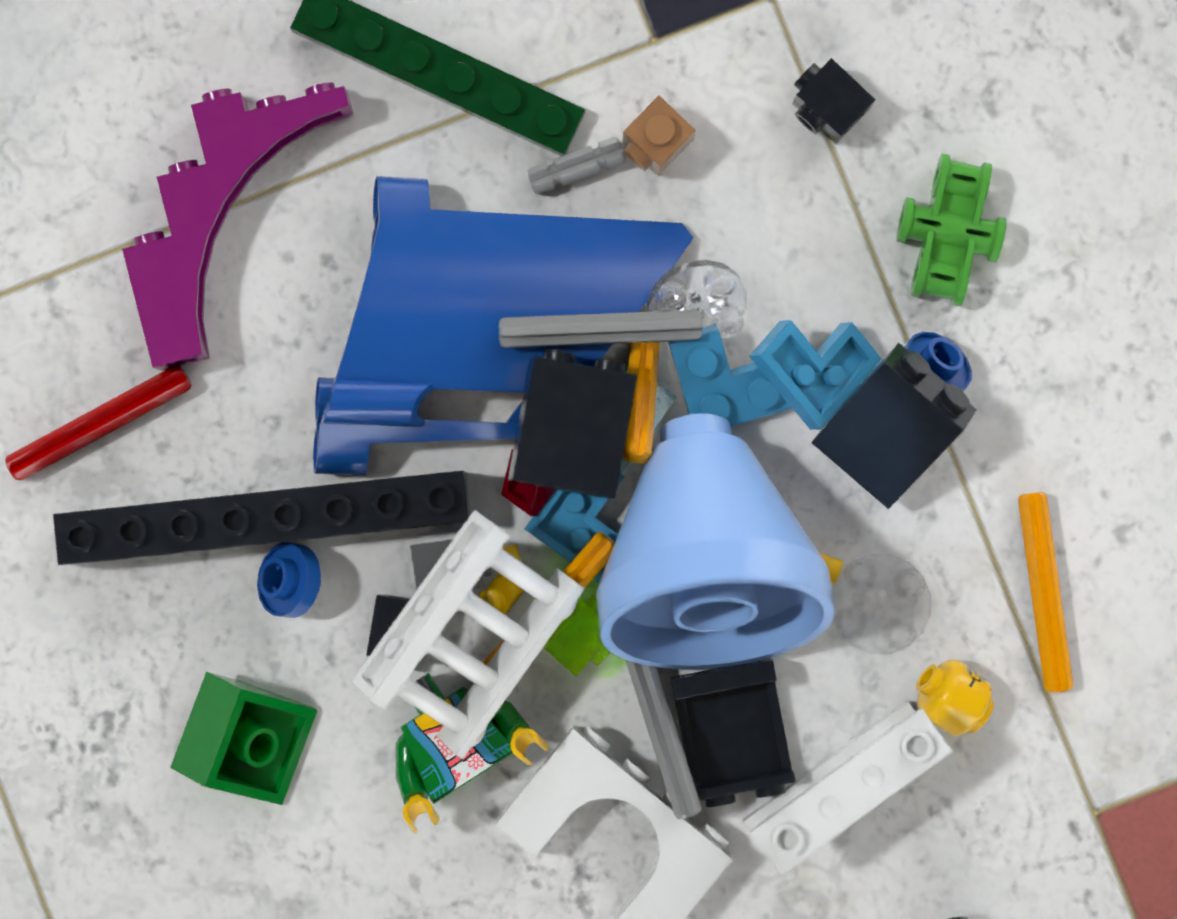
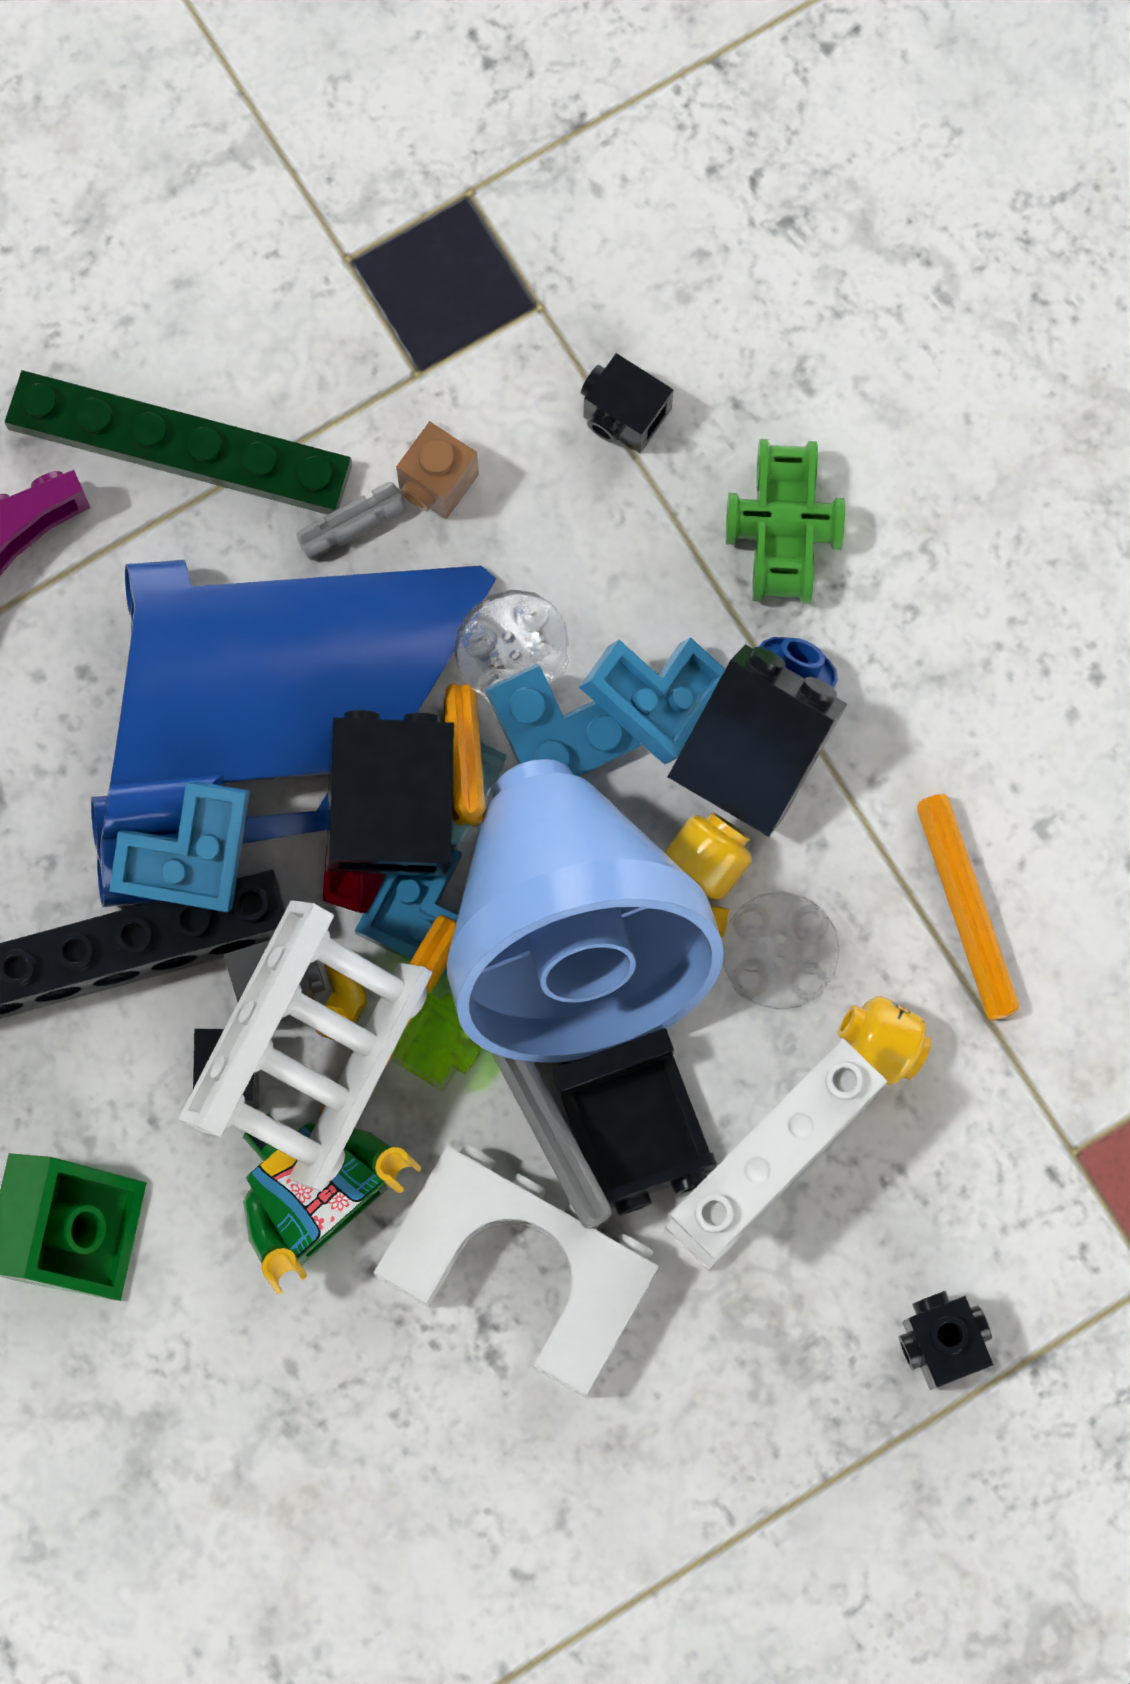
camera: 10 degrees left, 10 degrees down
(289, 580) = (91, 1033): blue plate -> none
(394, 463) = (197, 866): none -> dark azure plate
(600, 329) = (404, 683): light grey axle -> none
(834, 514) = (711, 853): none -> yellow head

